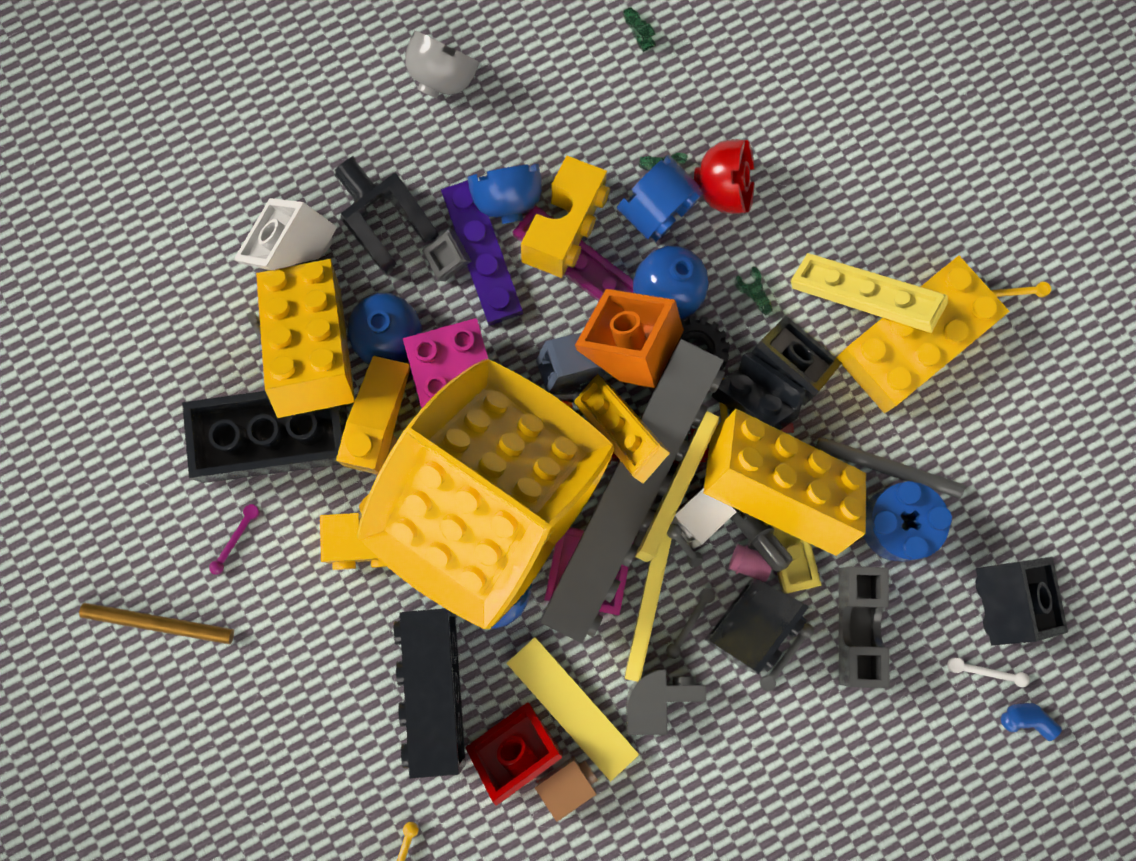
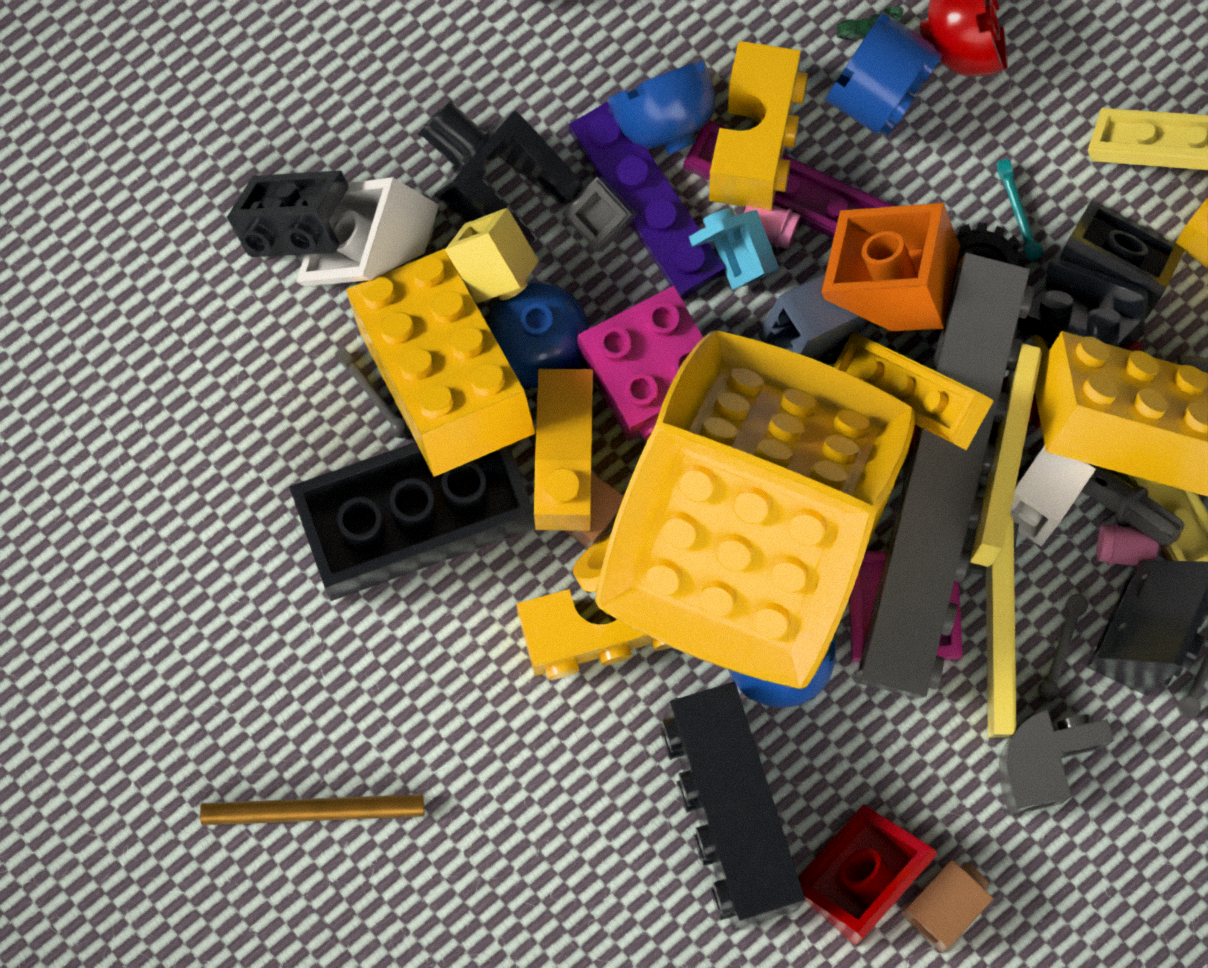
camera: 15 degrees left, 5 degrees down
(232, 211) = (288, 213): none -> black bracket
(250, 513) = (408, 628): magenta hinge -> none
(358, 271) = (492, 256): none -> light yellow brick
(535, 297) = (740, 245): none -> medium azure bracket
(562, 289) = (778, 224): none -> bright pink piece
(573, 709) = (928, 799): light yellow tile -> none
(675, 275) = (926, 171): blue cylinder -> none
(694, 558) = (1047, 556): dark grey hinge -> none
(736, 341) = (1033, 249): none -> teal hinge
(755, 291) = (1041, 175): clear green piece -> none

